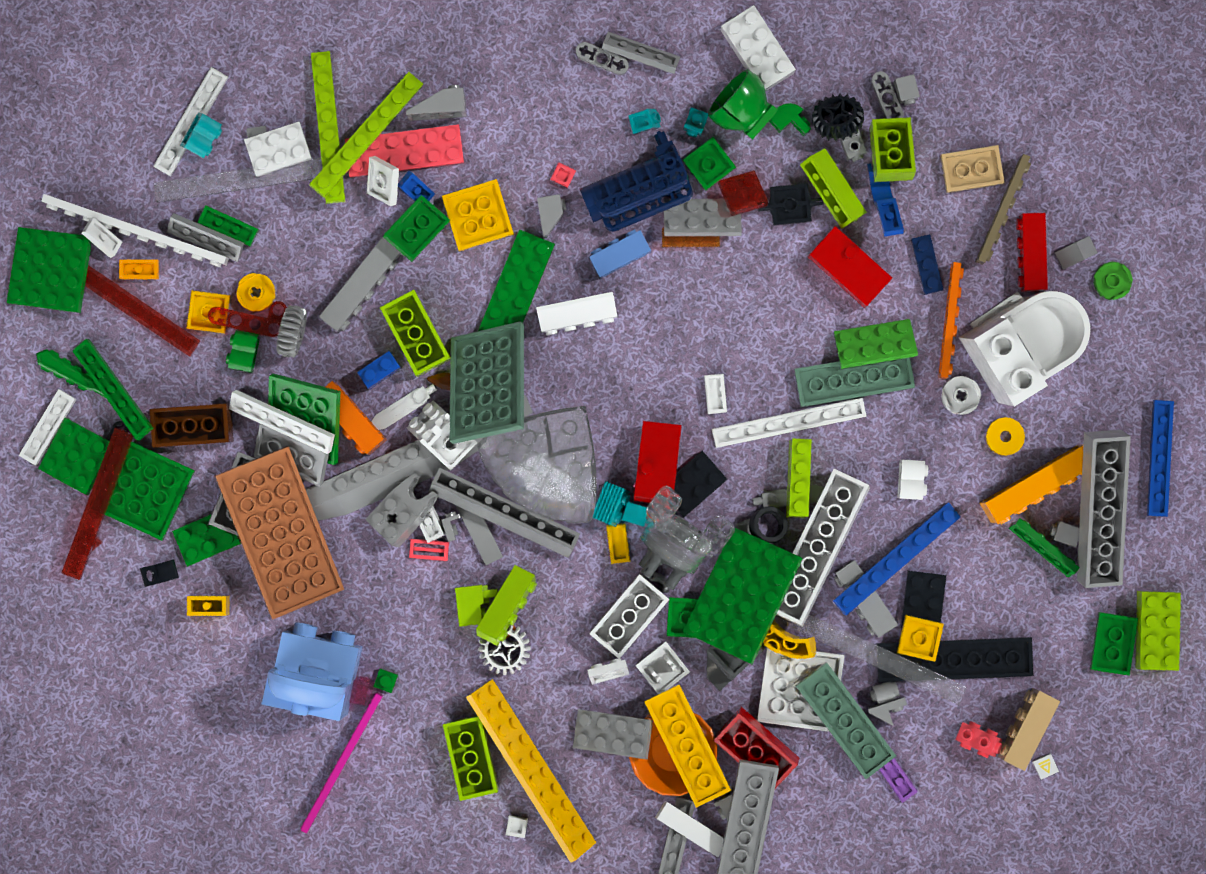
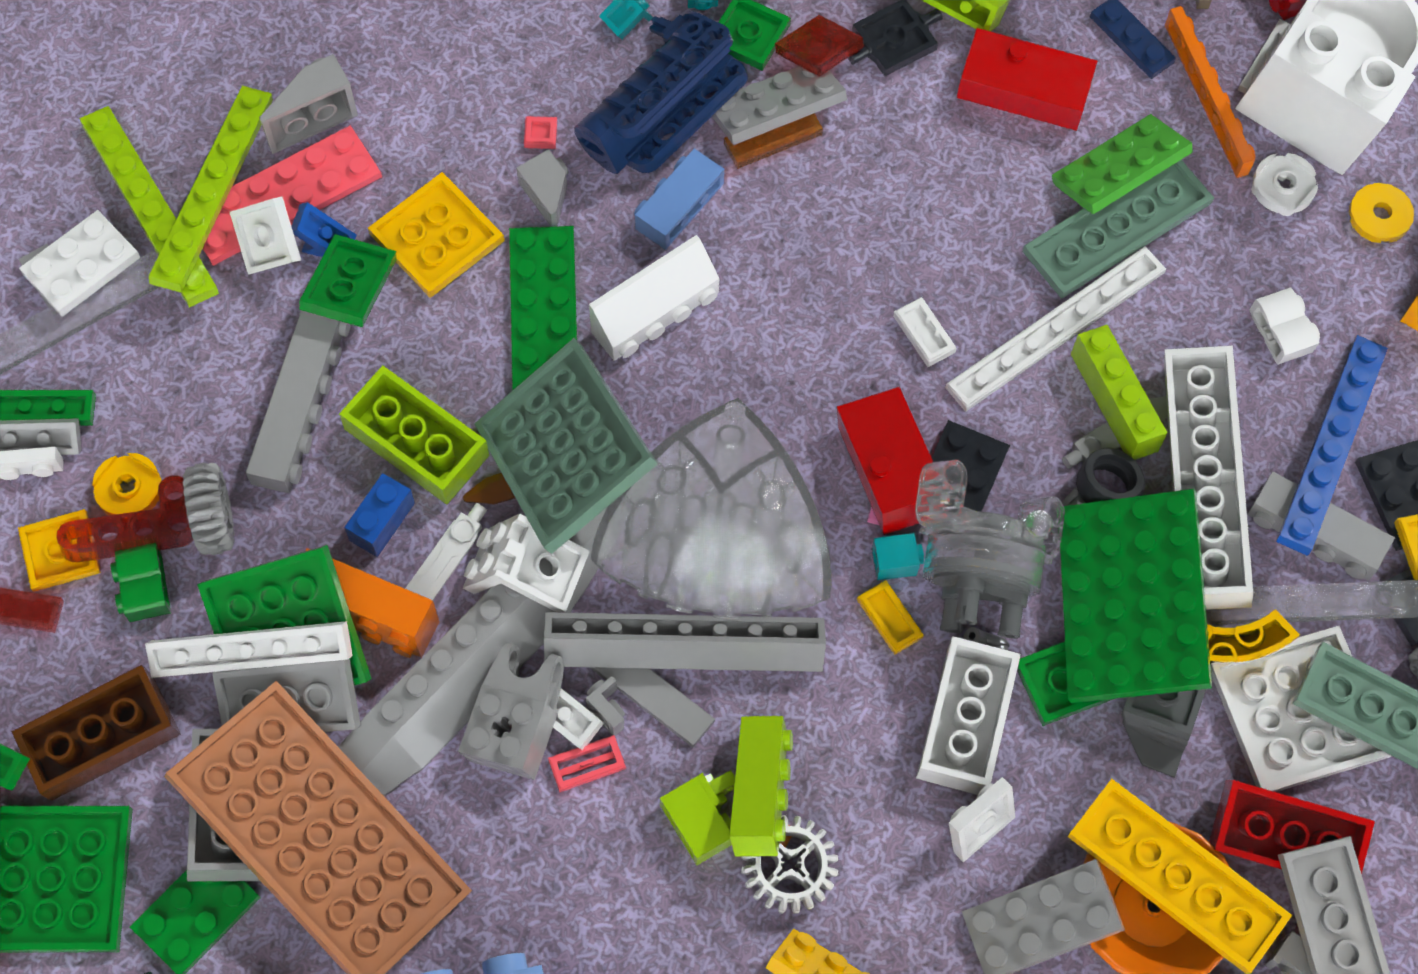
camera: 25 degrees left, 20 degrees down
(611, 504) = (850, 556): teal brick -> none
(662, 668) = (1064, 779): white plate -> none

